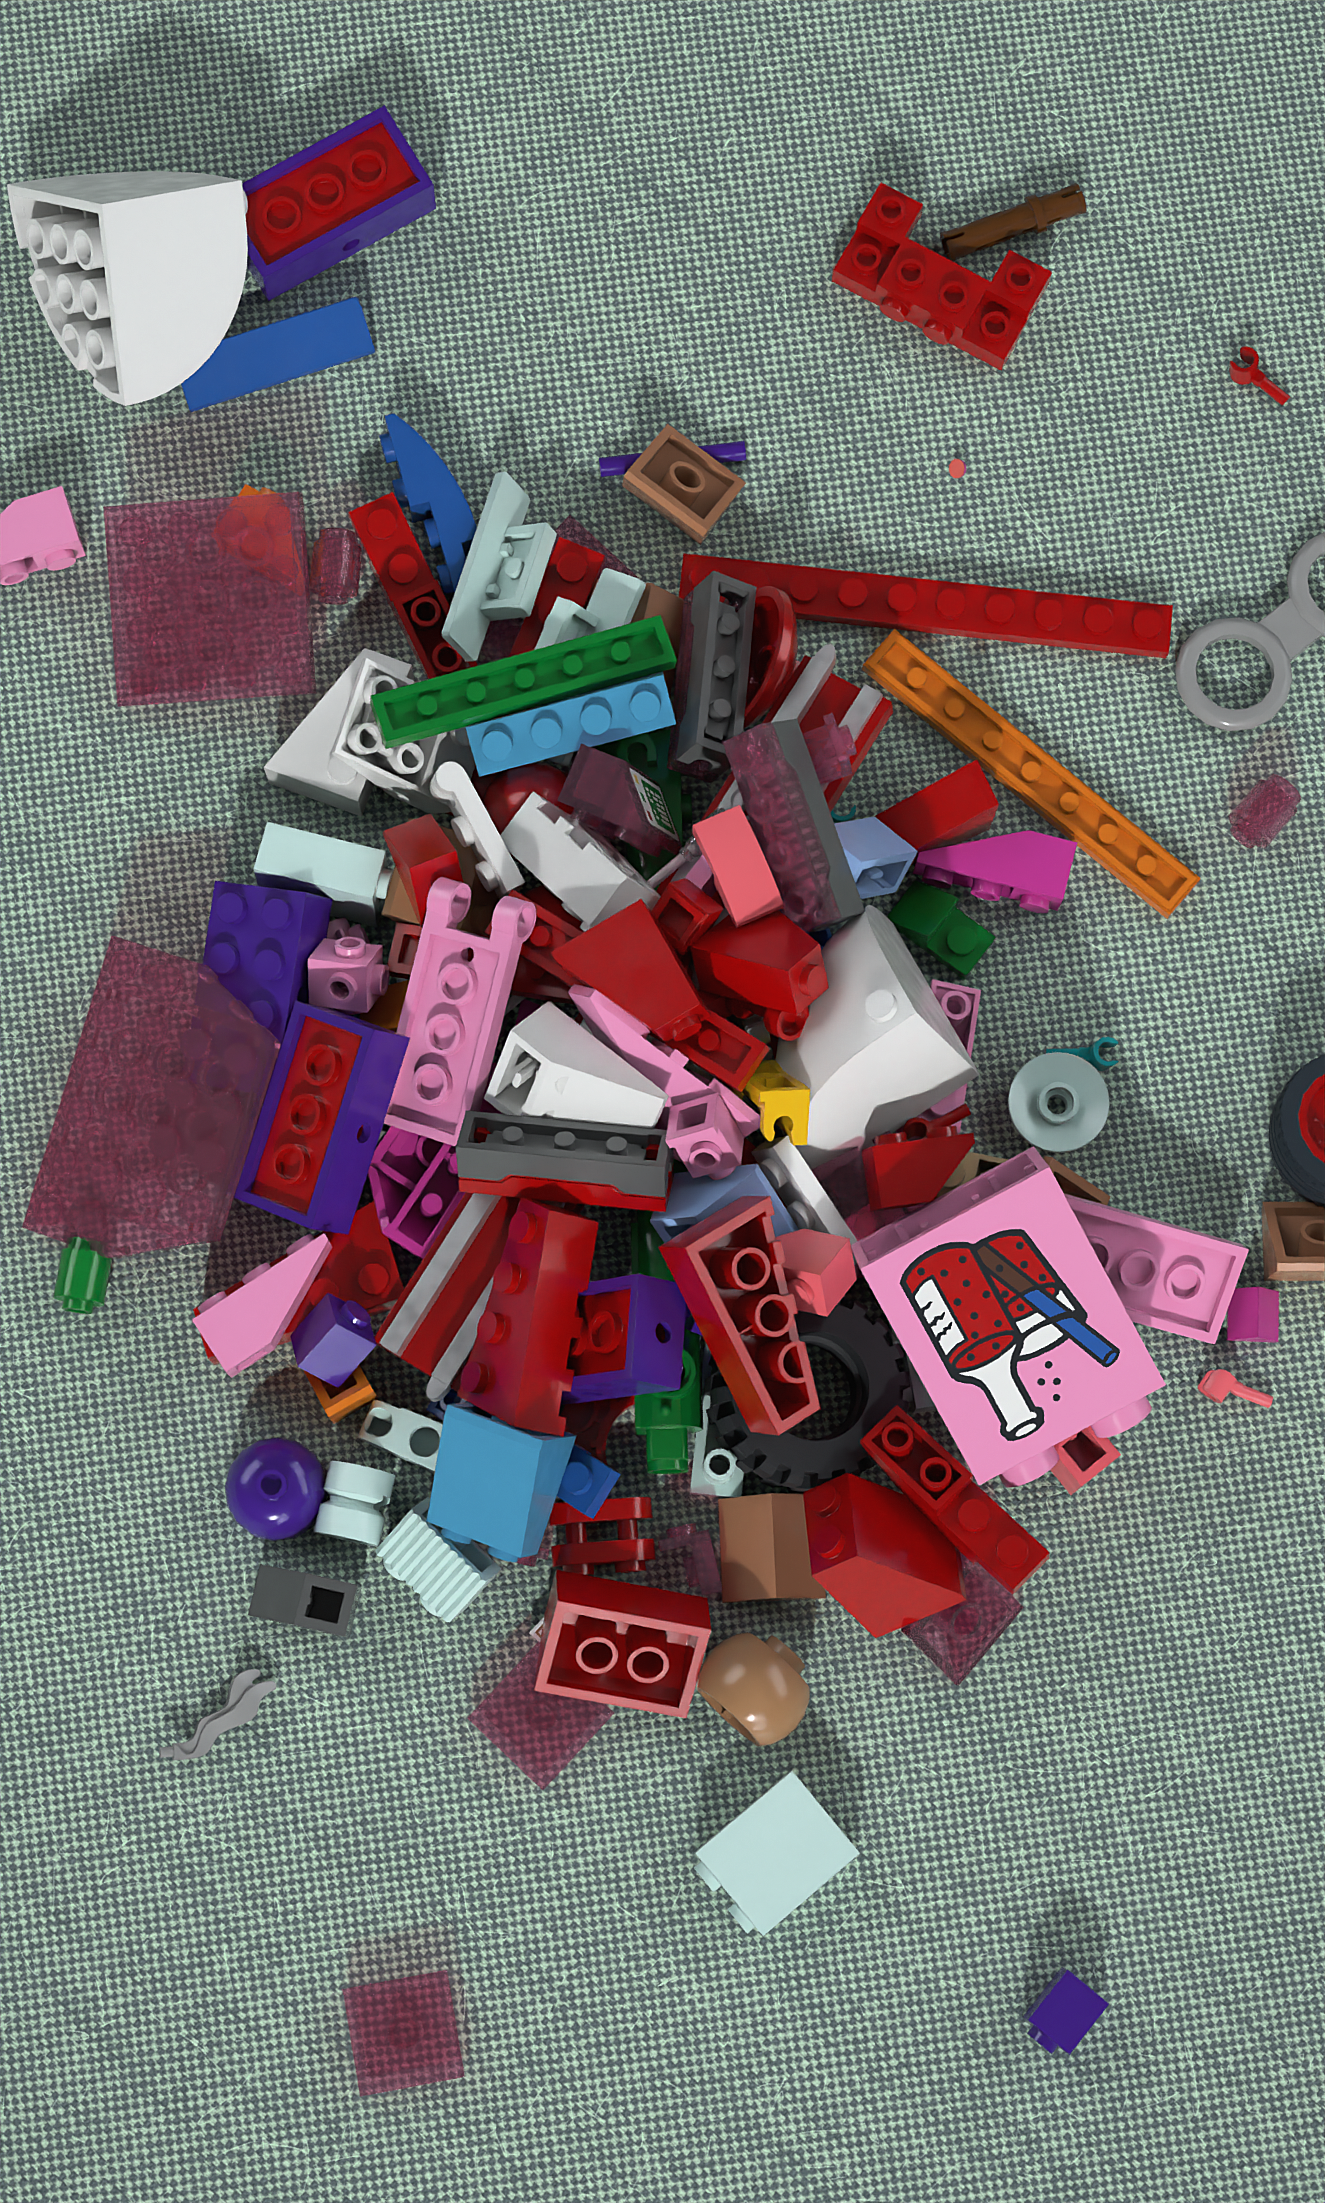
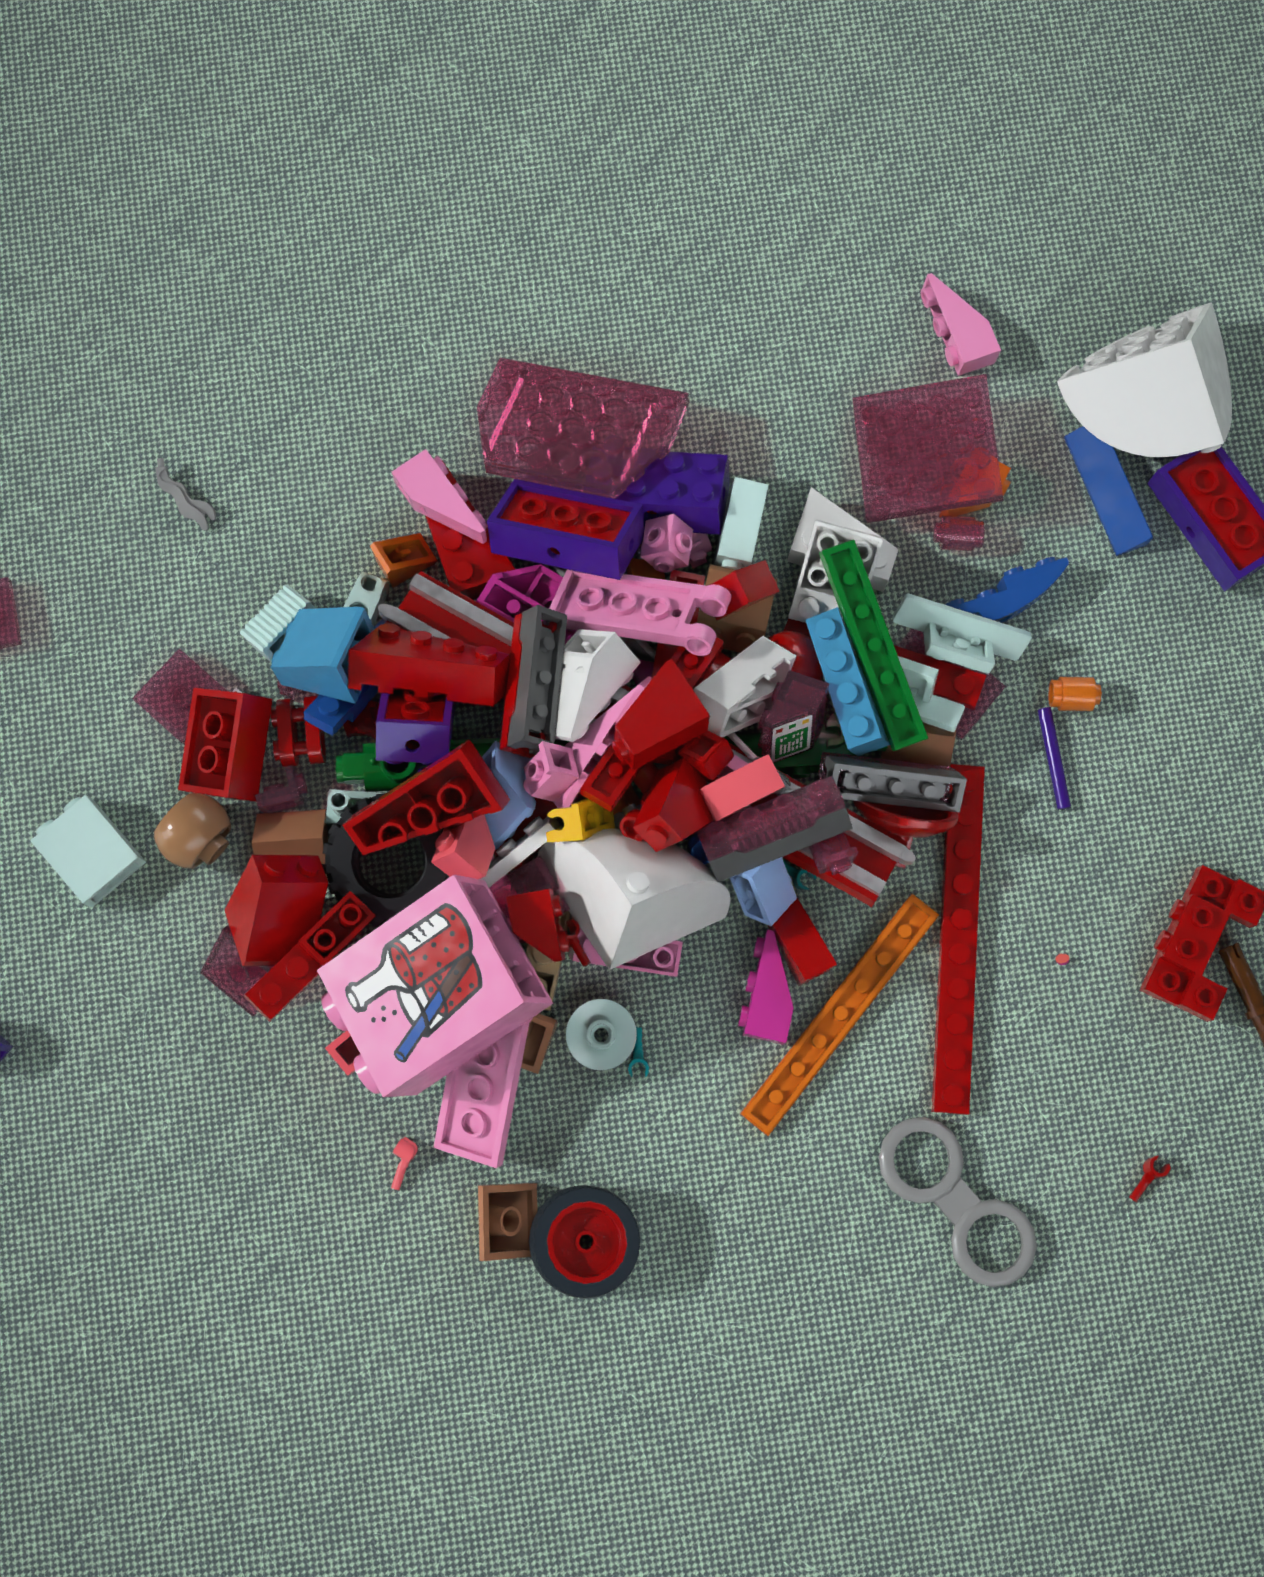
camera: 90 degrees right, 0 degrees up
(81, 1278) = (464, 394): green brick -> none
(276, 1489) = (330, 523): dark purple cylinder -> none
(305, 1600) = (254, 544): dark grey slope -> none
(333, 1339) = (420, 546): dark purple brick -> none
(354, 1503) = (314, 570): light aqua wheel -> none
(407, 584) = (950, 580): red slope -> none
(475, 828) = (769, 620): white plate -> none
(582, 423) = (1074, 693): none -> orange brick
(682, 483) = (1034, 762): nougat slope -> none
(941, 929) = (724, 952): green slope -> none
(1253, 1315) = (454, 1176): dark pink slope -> none
(1264, 812) = (818, 1181): clear pink brick -> none

